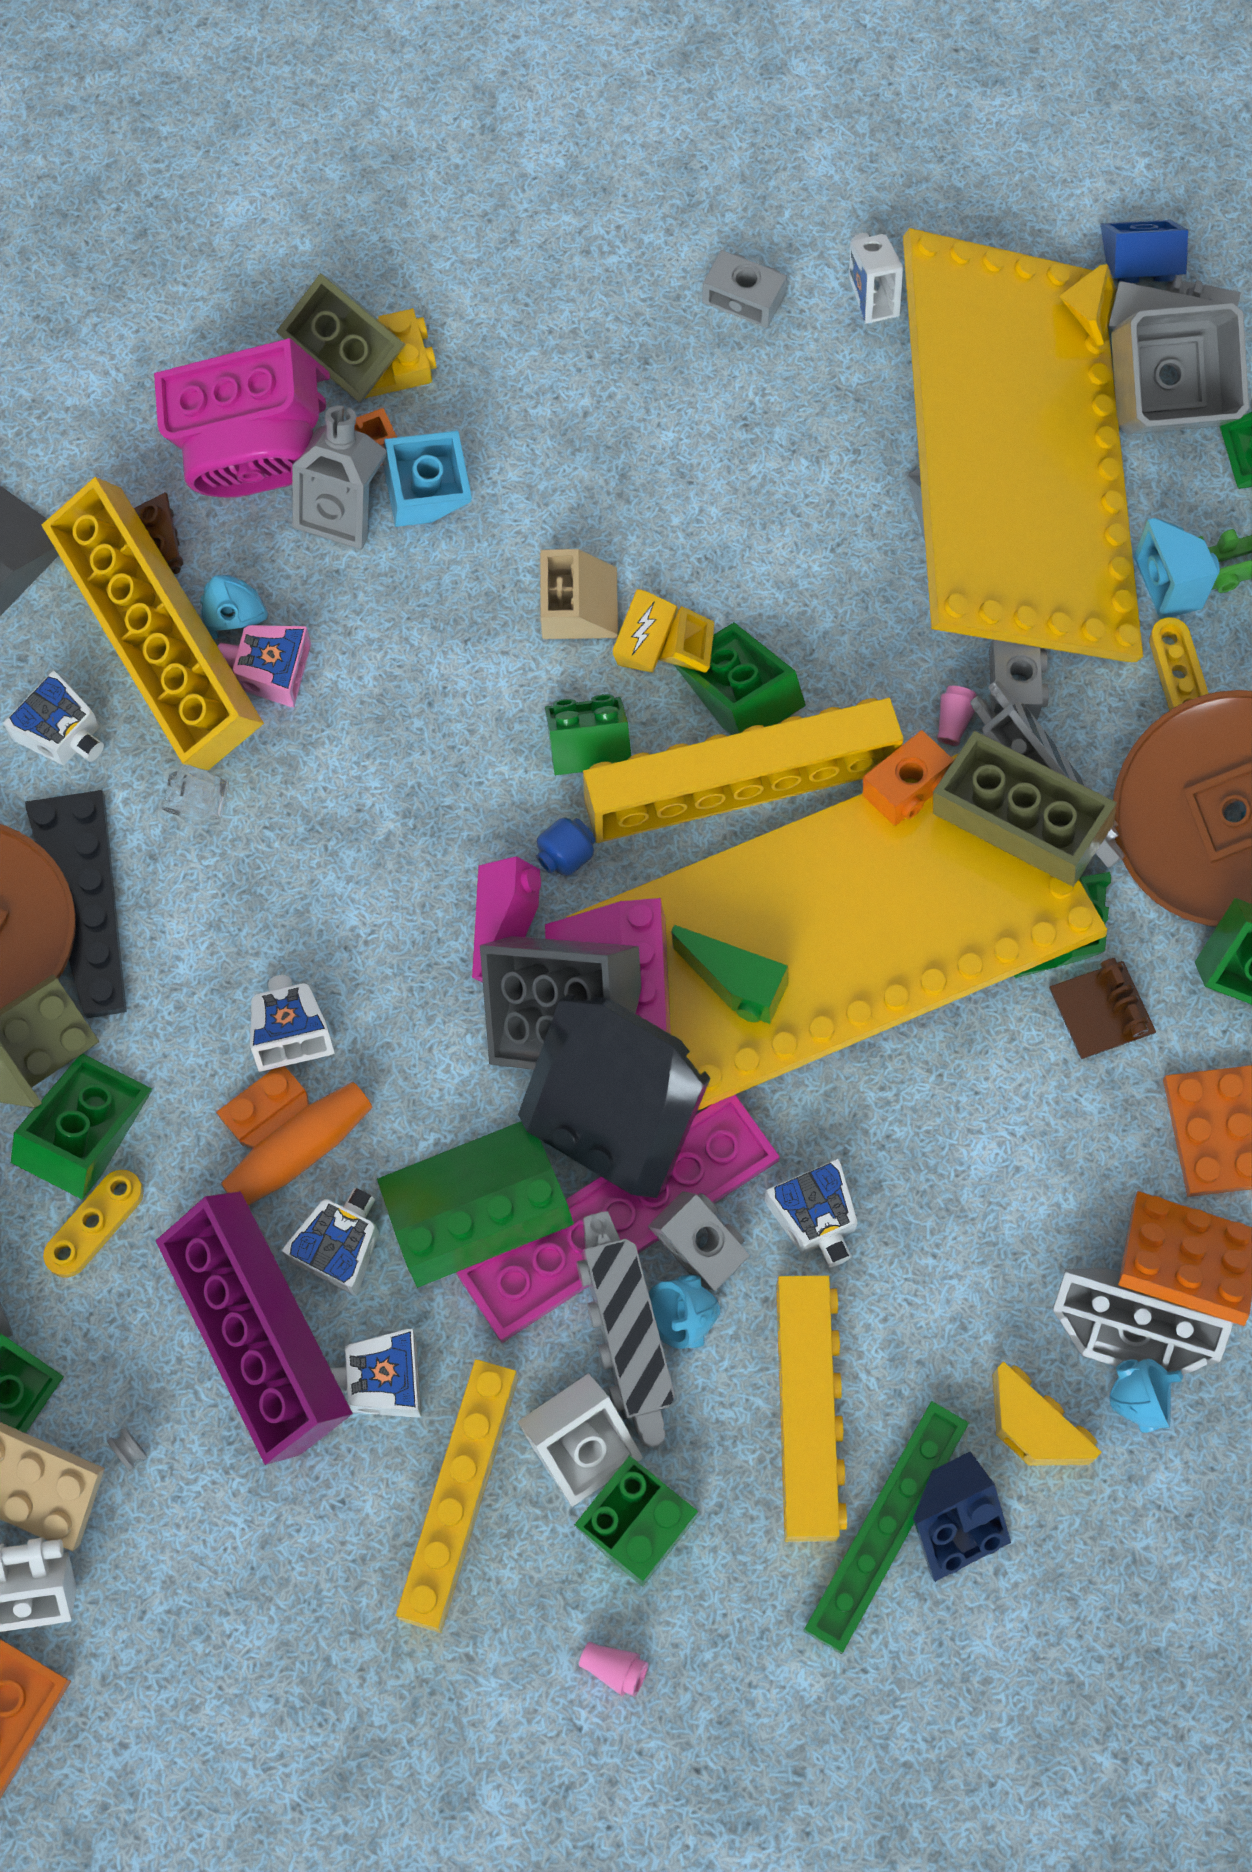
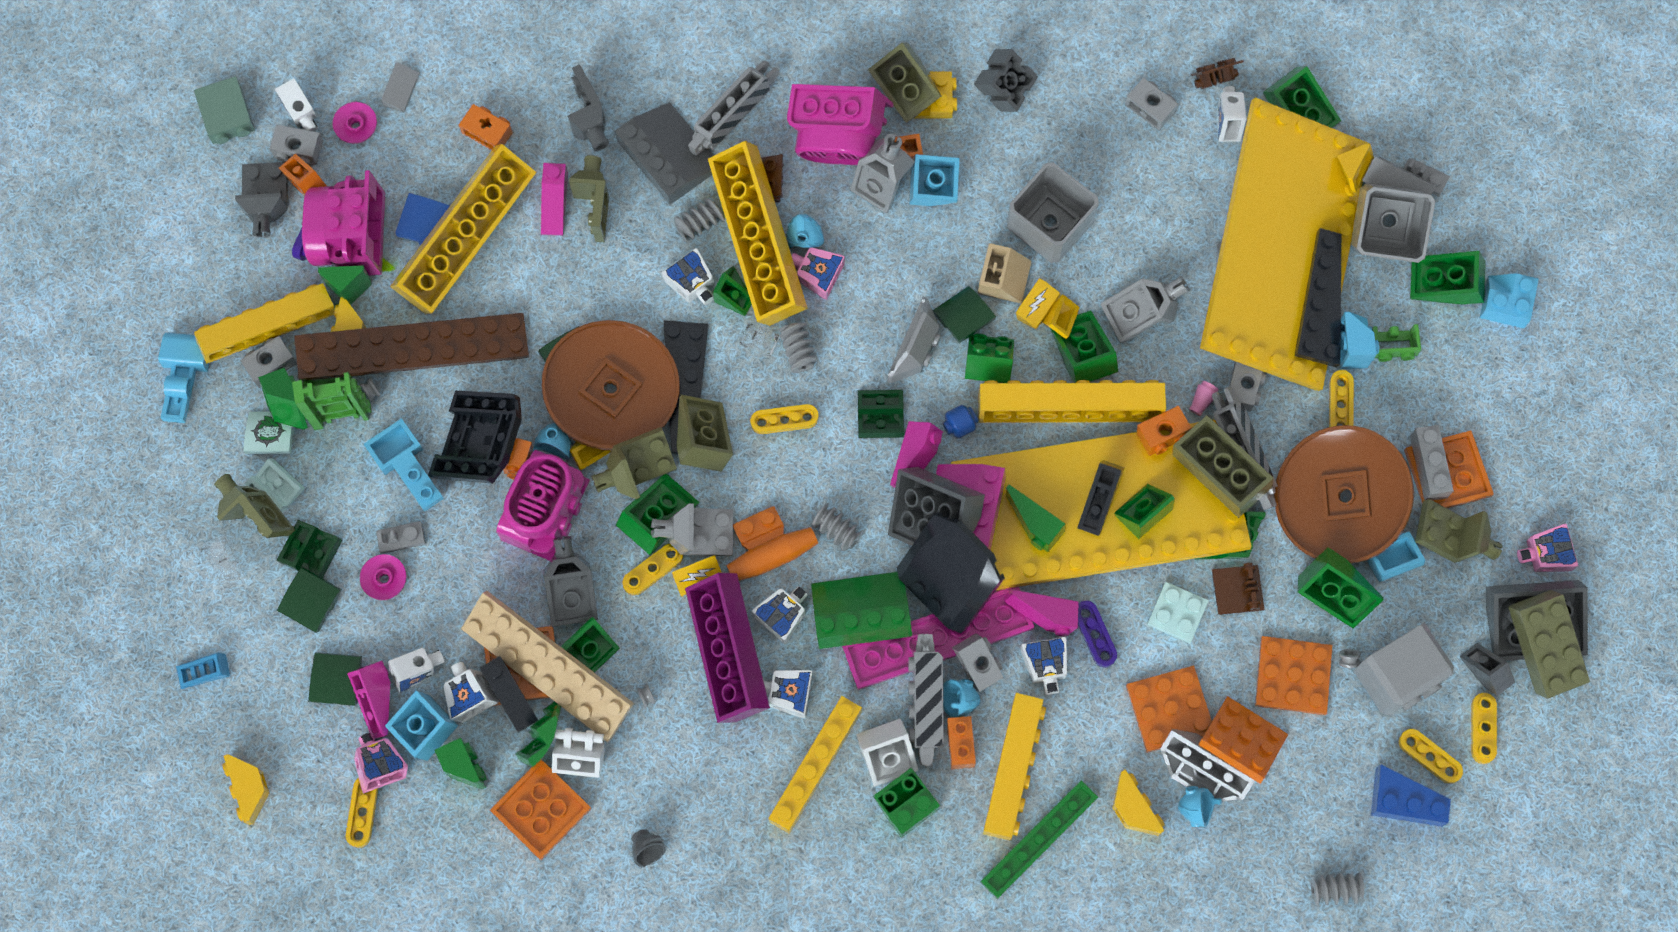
camera: 15 degrees right, 5 degrees up
(48, 626) = (698, 219): none -> light grey piece
(66, 441) = (732, 107): none -> light grey hinge
(130, 730) = (732, 292): none -> green slope
(130, 971) = (703, 434): none -> olive slope
(156, 1136) = (698, 531): none -> light grey plate
(167, 1209) = (695, 572): none -> yellow slope
(186, 1729) = (647, 848): none -> dark grey piece
(247, 914) = (774, 415): none -> yellow plate
(262, 791) = (797, 348): none -> light grey piece
(287, 1025) = (782, 486): white torso -> none
(398, 1073) = (836, 528): none -> light grey piece
(428, 867) = (880, 414): none -> dark green slope
(461, 741) = (917, 344): none -> light grey wedge
(503, 300) = (1006, 80): none -> dark grey brick
(529, 675) = (964, 314): none -> dark green slope
(615, 1667) = (876, 875): bright pink cone -> none
(624, 455) = (1055, 196): none -> light grey plate
(705, 1389) = (961, 742): none -> orange brick
(795, 1124) = (1048, 612): none -> dark pink slope
(817, 593) = (1143, 306): none -> light grey plate
(834, 220) = (1224, 73): none -> reddish brown hinge
(834, 911) = (1100, 497): none -> black slope
(881, 1124) = (1101, 644): none -> dark purple plate
(915, 912) = (1145, 509): none -> green slope
(959, 1517) = (1078, 845): dark blue slope -> none
(979, 216) = (1302, 95): none -> green slope
(1013, 1072) = (1177, 612): none -> light aqua plate
(1040, 1231) = (1168, 703): none -> orange plate
(1108, 540) = (1321, 315): none -> black wing
(1145, 250) = (1399, 135): blue slope -> none

